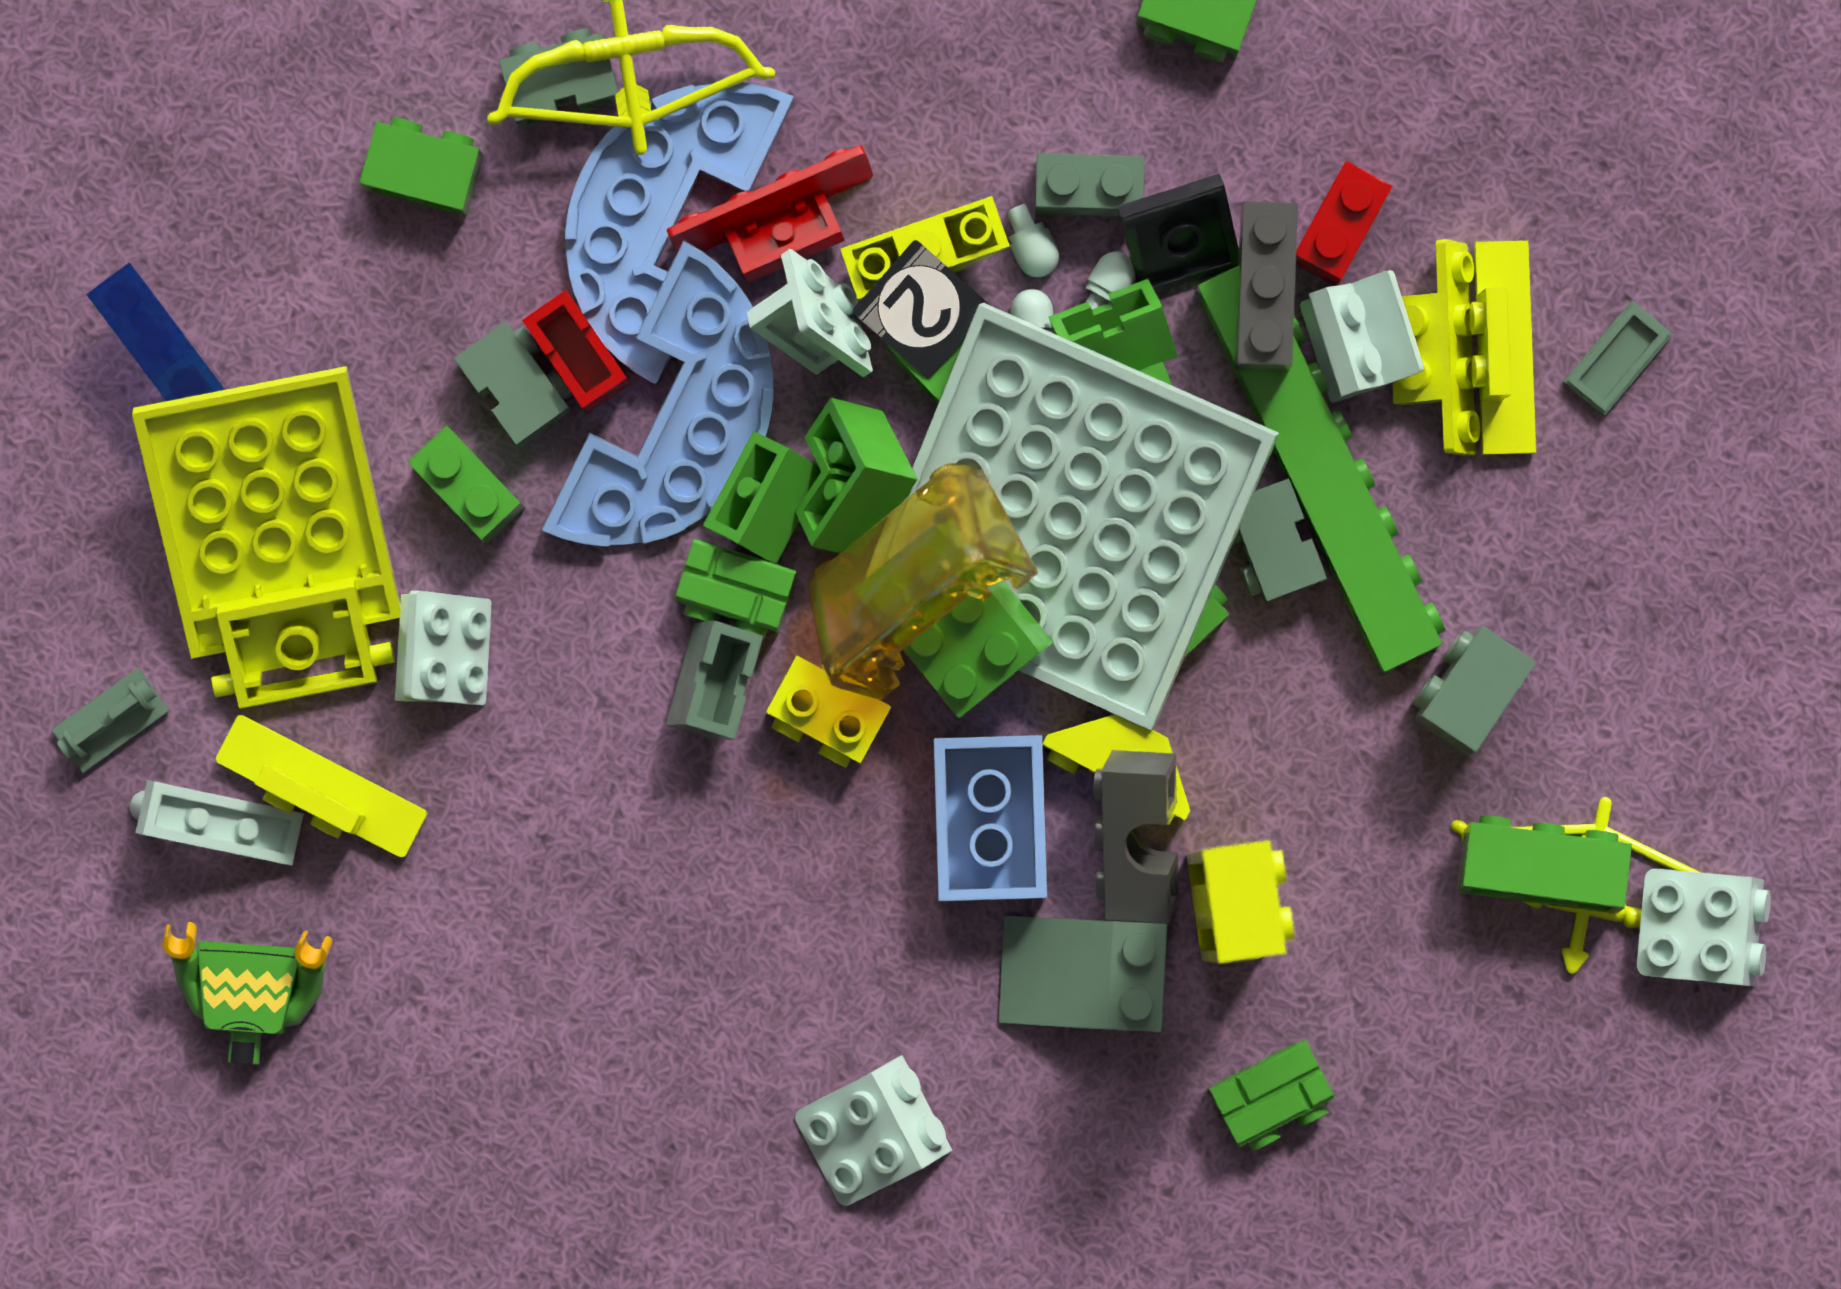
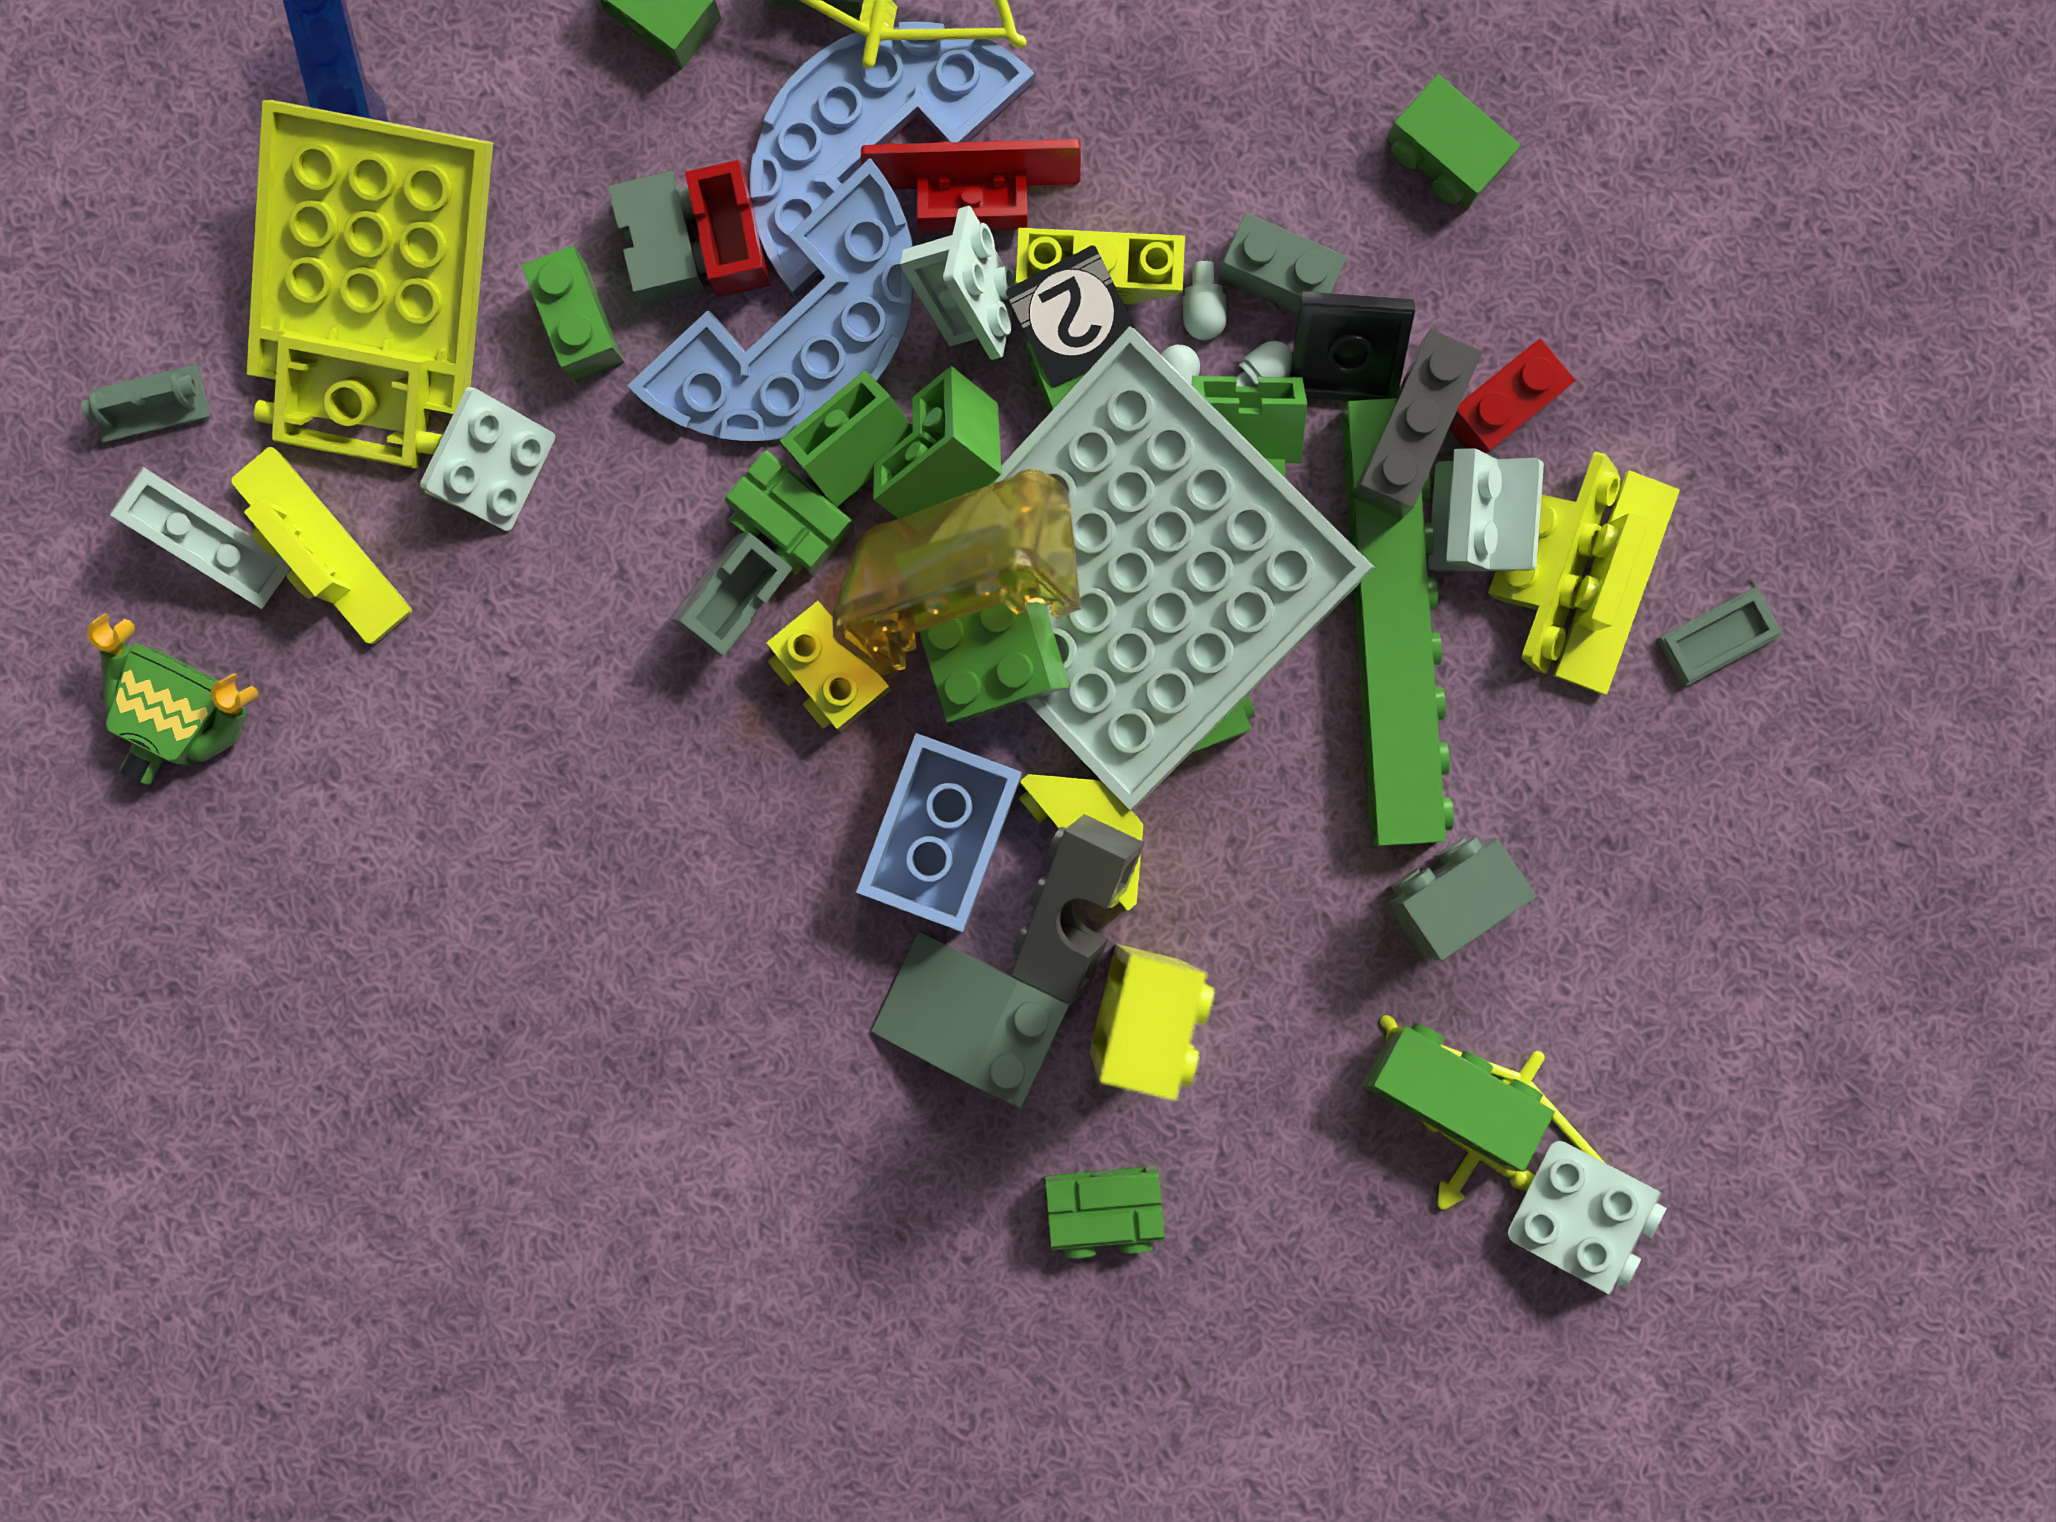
camera: 20 degrees right, 0 degrees up
(872, 1132) = (708, 1088): light aqua bracket -> none
(1274, 552) = (1318, 682): sand green brick -> none

